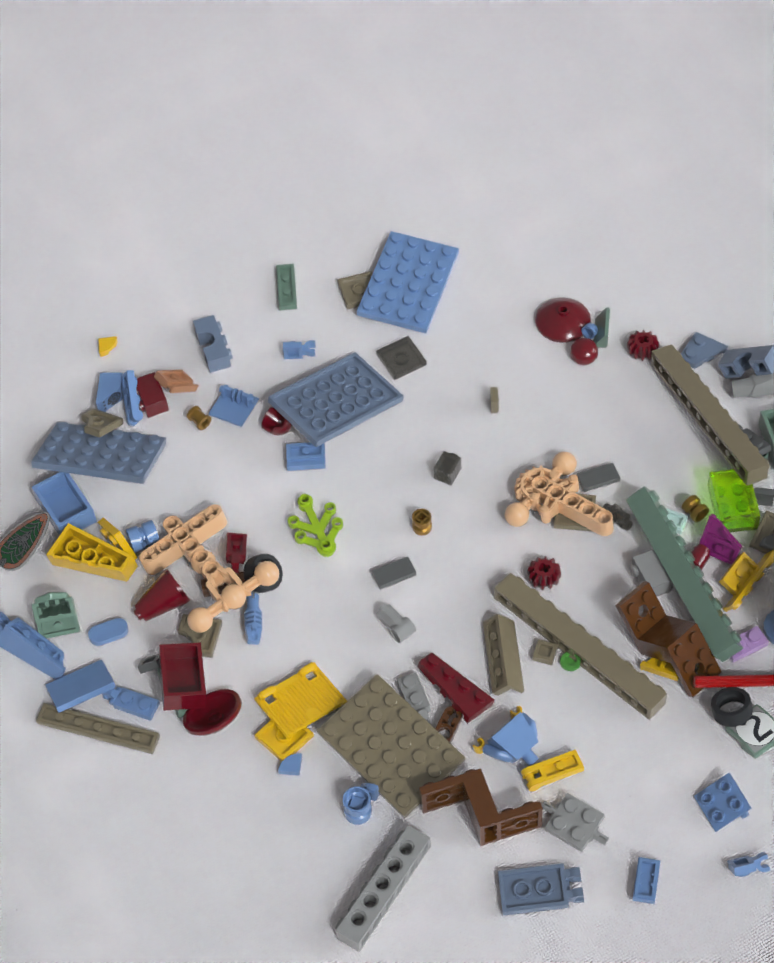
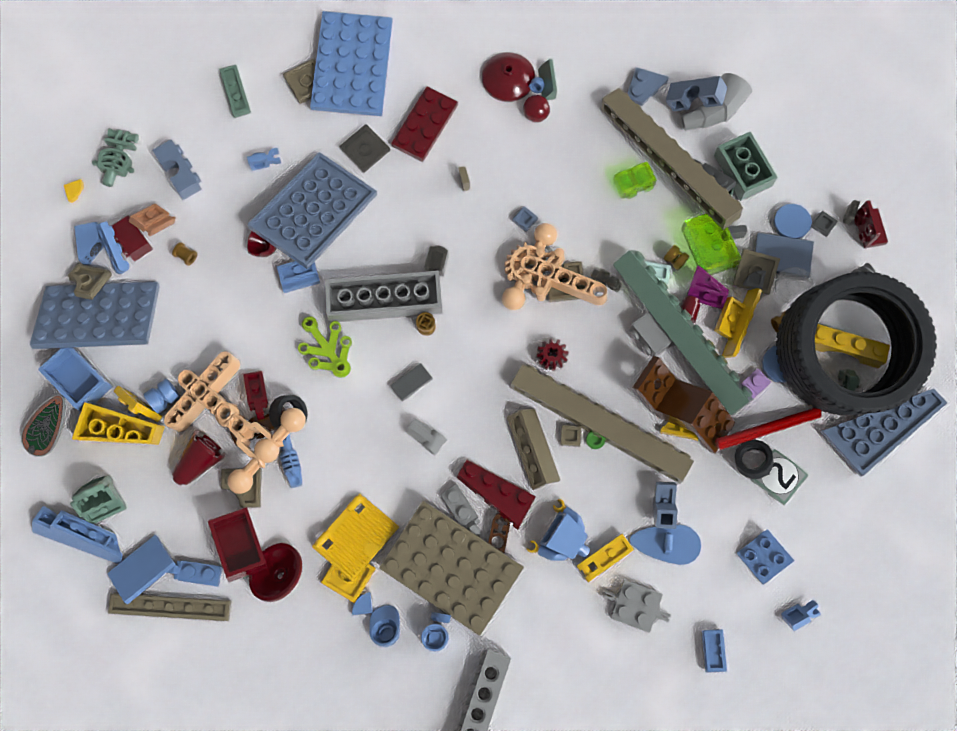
camera: 15 degrees left, 20 degrees up
(108, 631) = (154, 503): medium blue tile -> none
(149, 664) = (201, 532): dark grey tile -> none
(150, 325) = (111, 157): none -> sand green torso
(233, 405) = (215, 233): medium blue hinge -> none
(308, 787) = (385, 626): none -> medium blue cap
(385, 487) = (383, 296): none -> light grey brick
(467, 346) = (424, 124): none -> dark red plate
(474, 791) = (550, 615): reddish brown bracket -> none
(538, 889) = (618, 681): sand blue tile -> none
(547, 448) = (525, 219): none -> sand blue tile
(598, 477) = (579, 241): dark grey tile -> none
(623, 772) = (669, 545): none -> medium blue shield
(627, 729) = (664, 505): none -> sand blue brick
(642, 344) = (595, 96): dark red gear -> none
(669, 431) = (635, 180): none -> clear neon green brick

